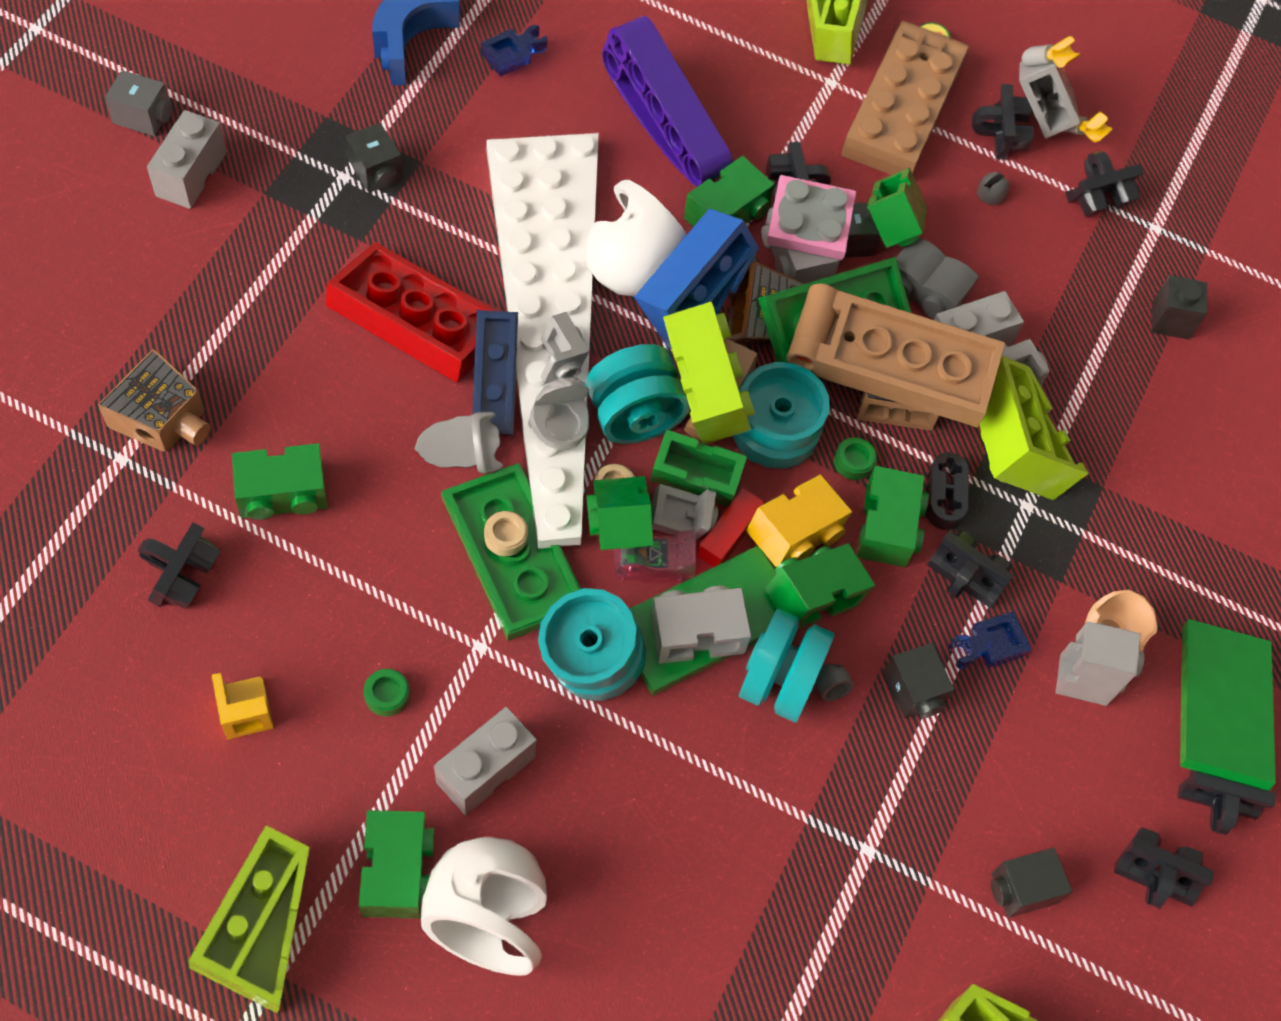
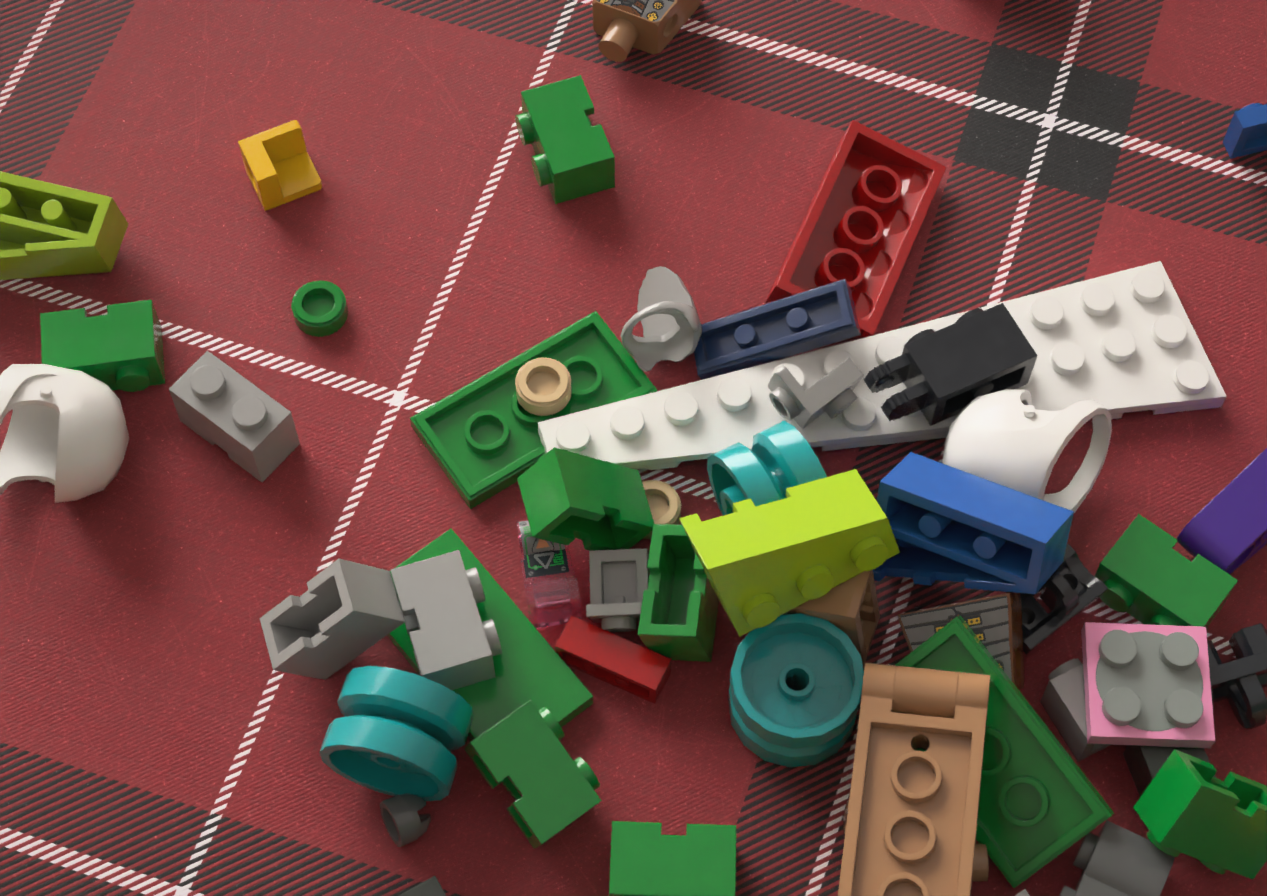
camera: 90 degrees right, 0 degrees up
(172, 585) = (458, 72): black hips -> none
(374, 157) = (1077, 137): pearl dark grey brick -> none
(560, 260) = (955, 365): none -> black hinge
(563, 392) = (730, 380): light grey piece -> none
(592, 644) = (393, 498): teal wheel -> none
(691, 698) = (333, 621): none -> light grey brick
(800, 524) = (629, 739): yellow brick -> none
(855, 458) = (769, 819): green tile -> none

